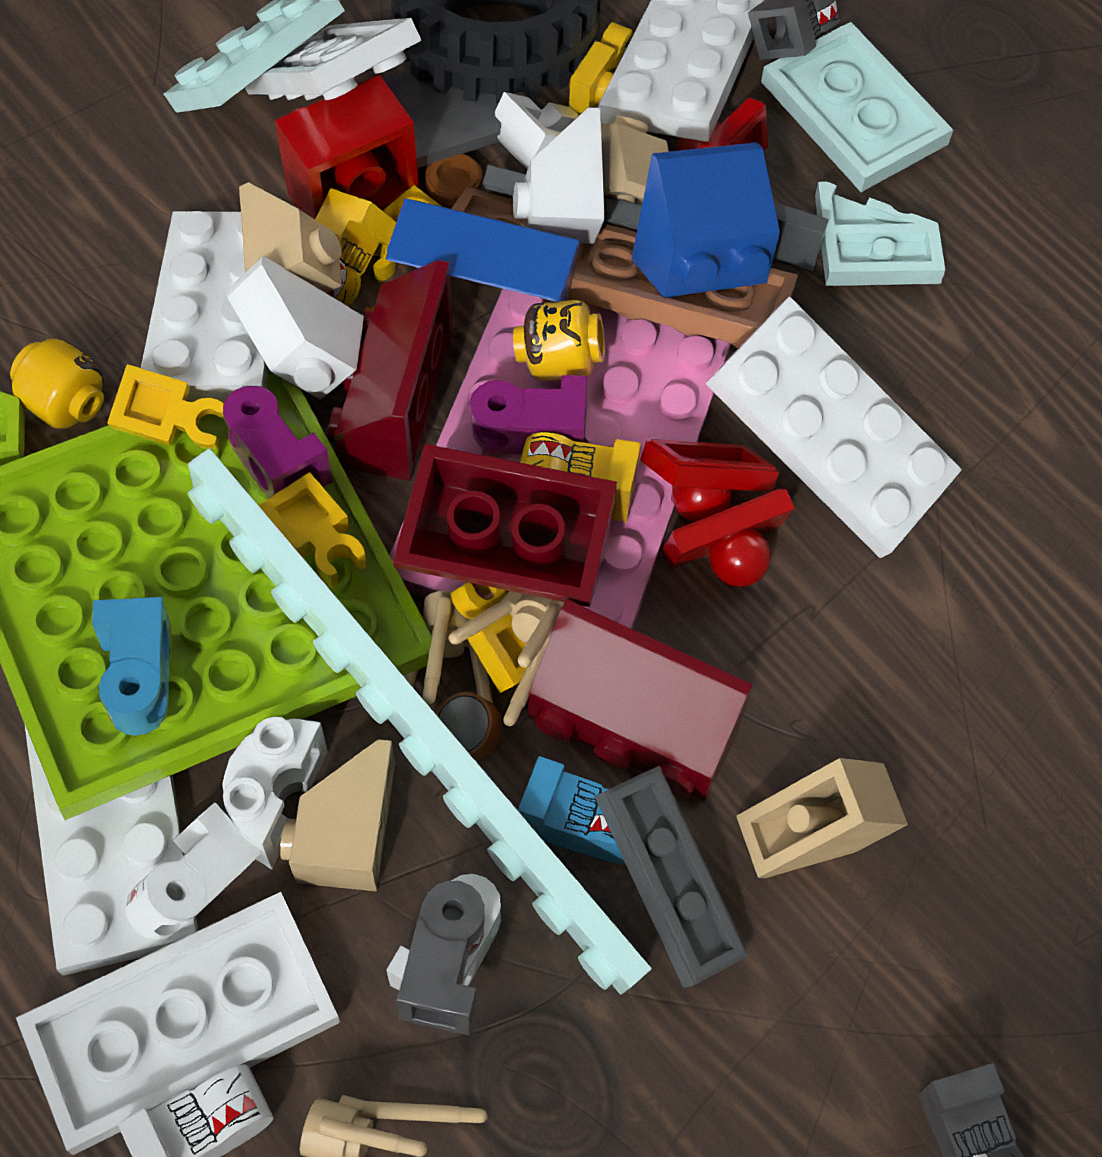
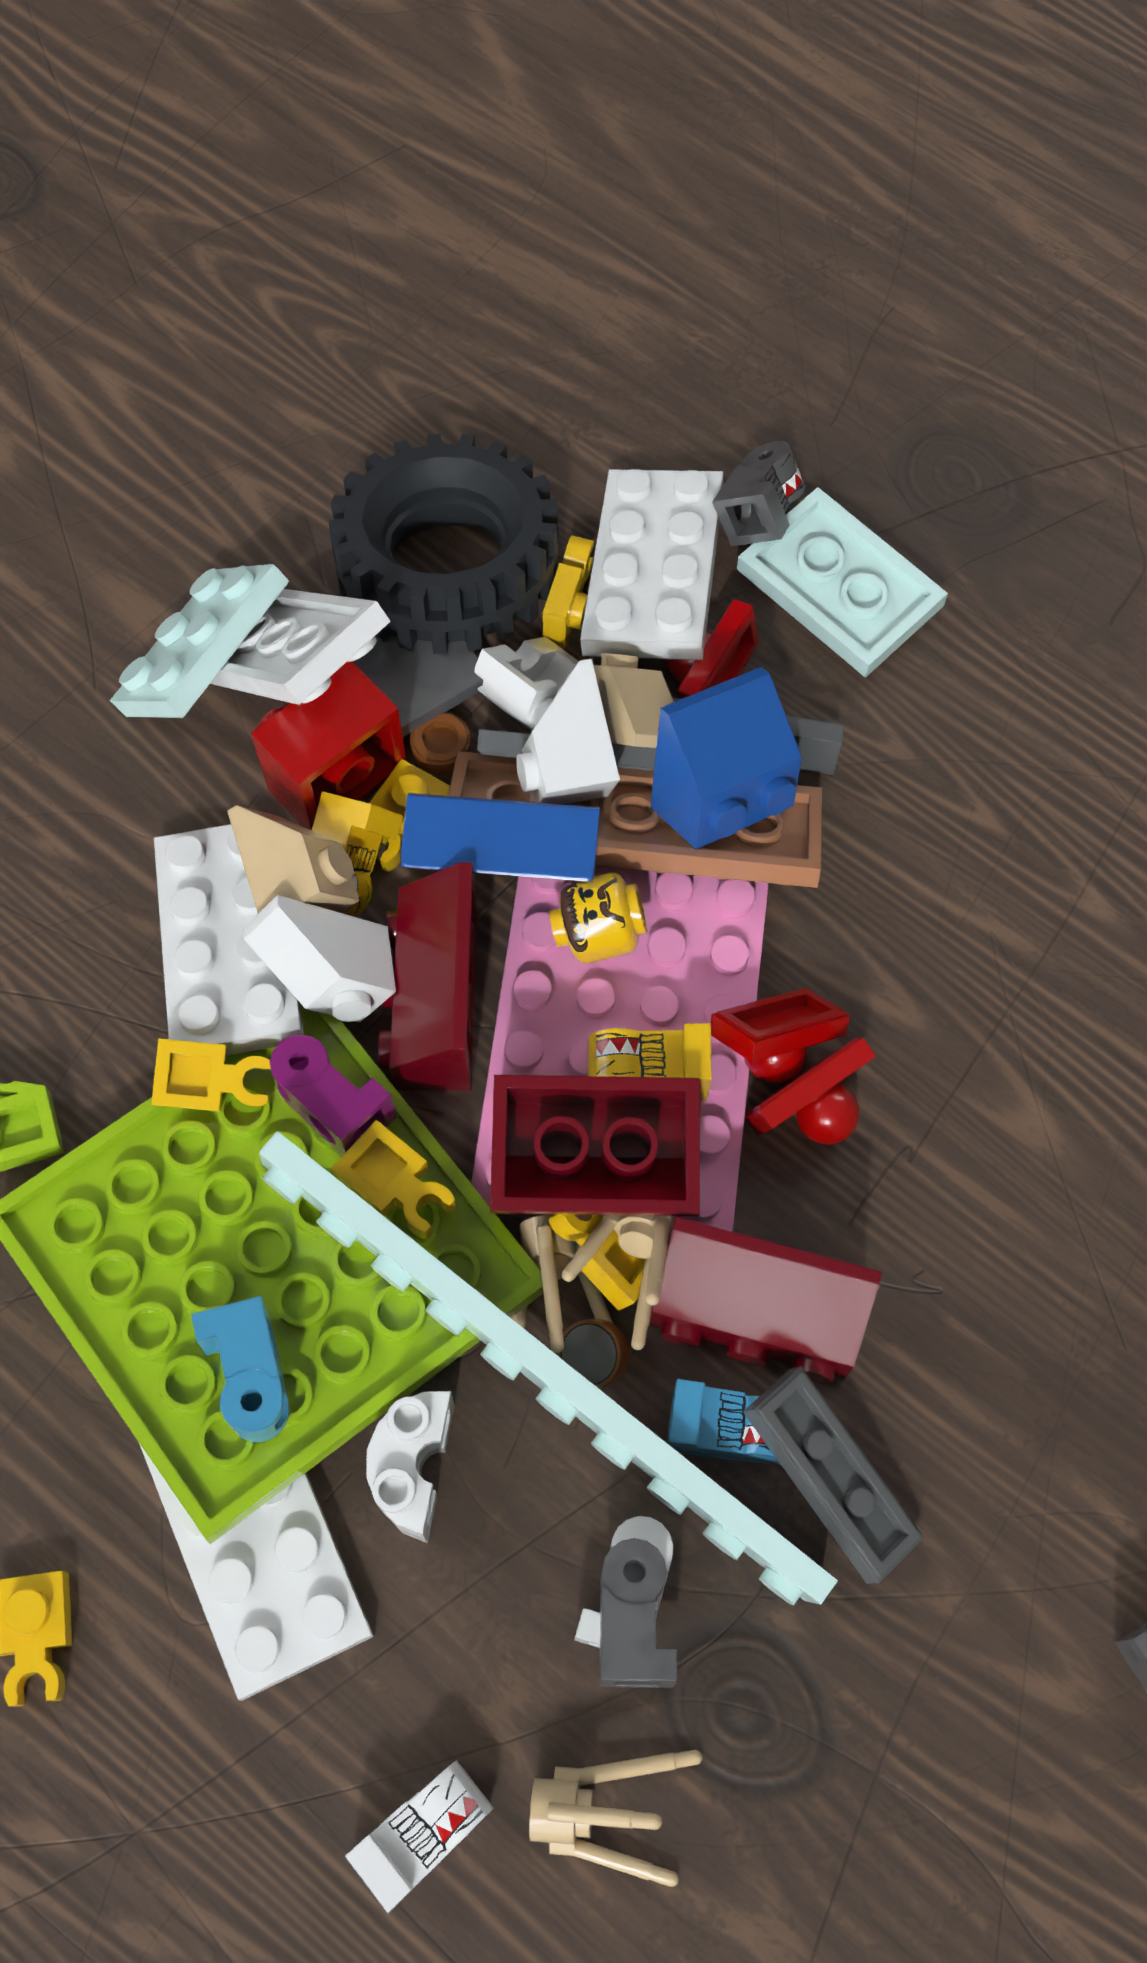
camera: 10 degrees left, 5 degrees up
(57, 383) = (80, 1059): yellow head -> none
(176, 1021) = (372, 1730): white plate -> none
(182, 888) = (359, 1581): white leg -> none
(343, 823) = (492, 1486): tan slope -> none
(508, 415) = (566, 1014): magenta leg -> none
(822, 817) = (966, 1380): tan slope -> none
(834, 427) = (895, 956): white plate -> none
(876, 243) = (893, 735): light aqua wing -> none

